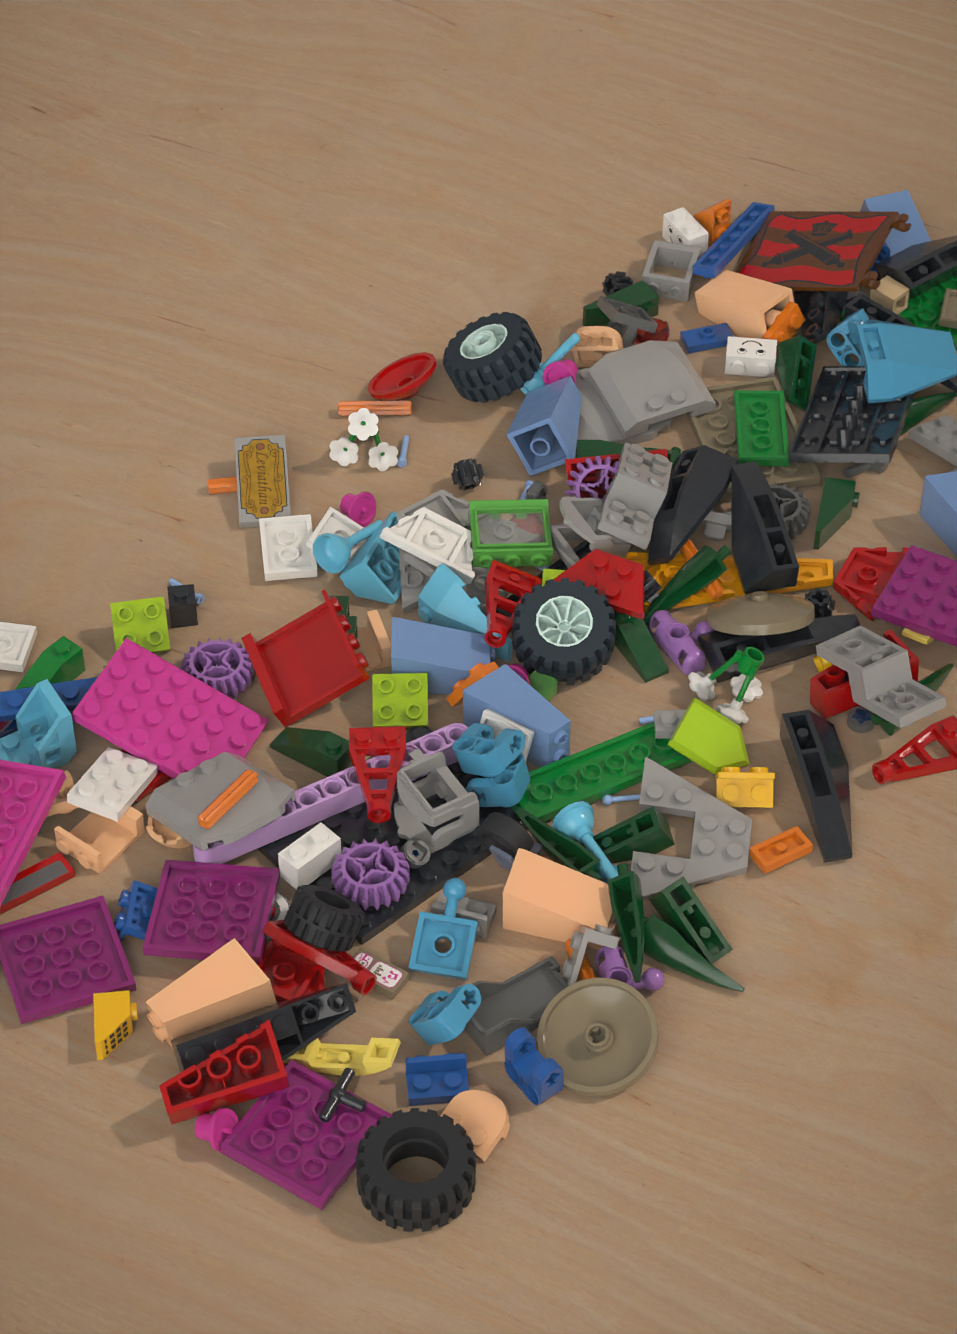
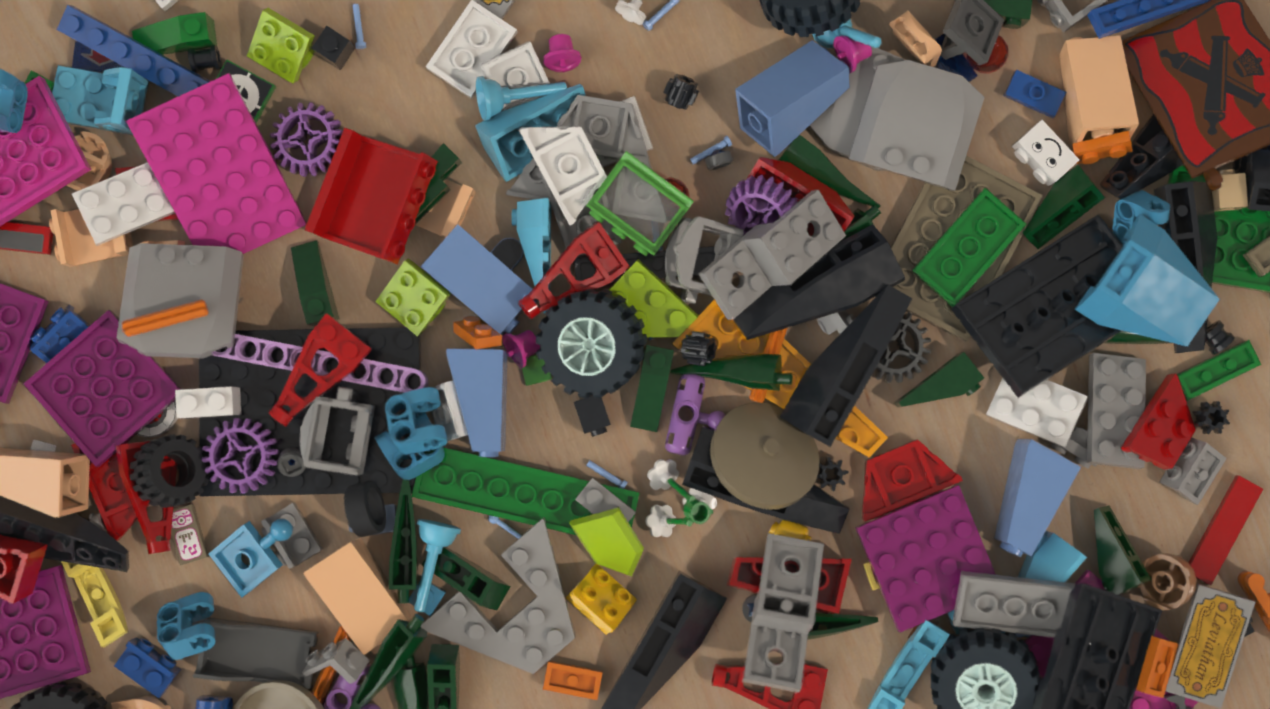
camera: 40 degrees right, 40 degrees up
(89, 670) = (204, 59): none -> black bush
(339, 1095) = (59, 630): black piece -> none
(610, 684) = (592, 415): none -> black brick
(614, 577) = (666, 326): red wing -> none
(904, 477) = (1045, 411): none -> white plate

